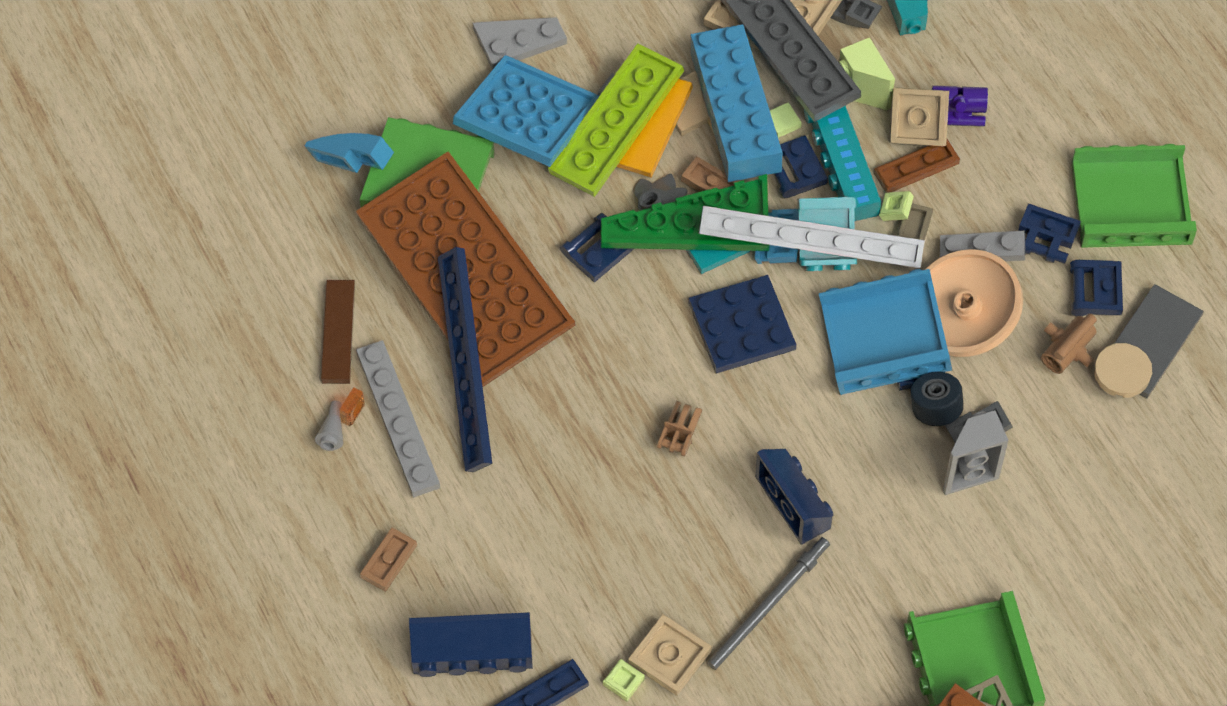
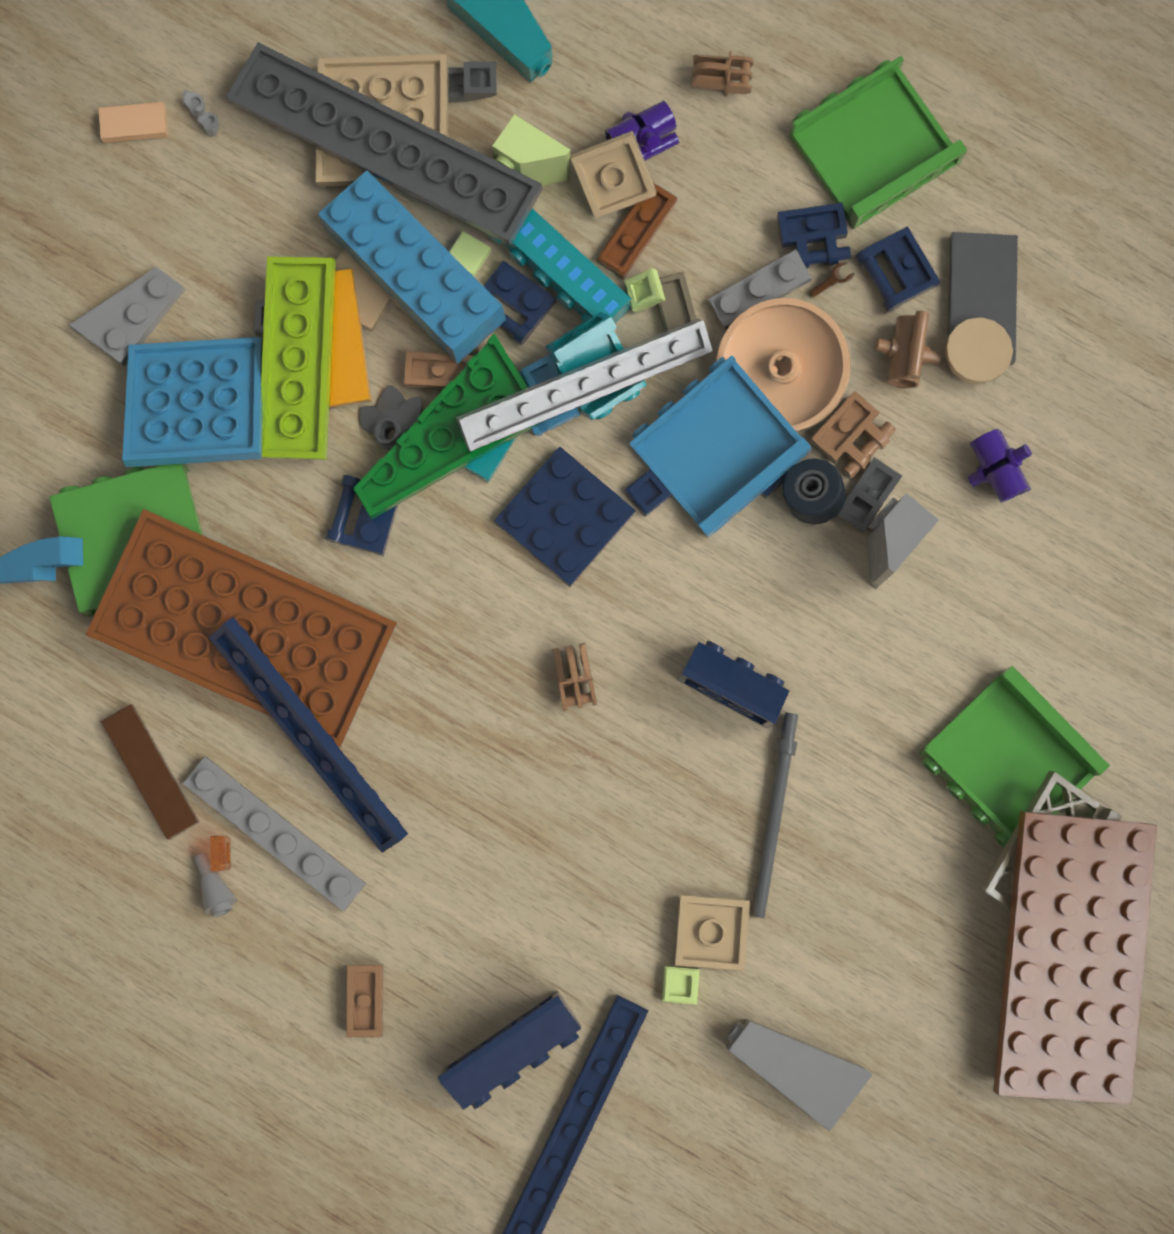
camera: 35 degrees left, 20 degrees up
(813, 340) = (648, 492): none -> dark blue tile
(990, 371) = (845, 426): none -> medium nougat plate
(1045, 269) = (831, 280): none -> reddish brown hand
(1047, 96) = (716, 73): none -> medium nougat arm
(1091, 455) = (1000, 465): none -> dark purple pin

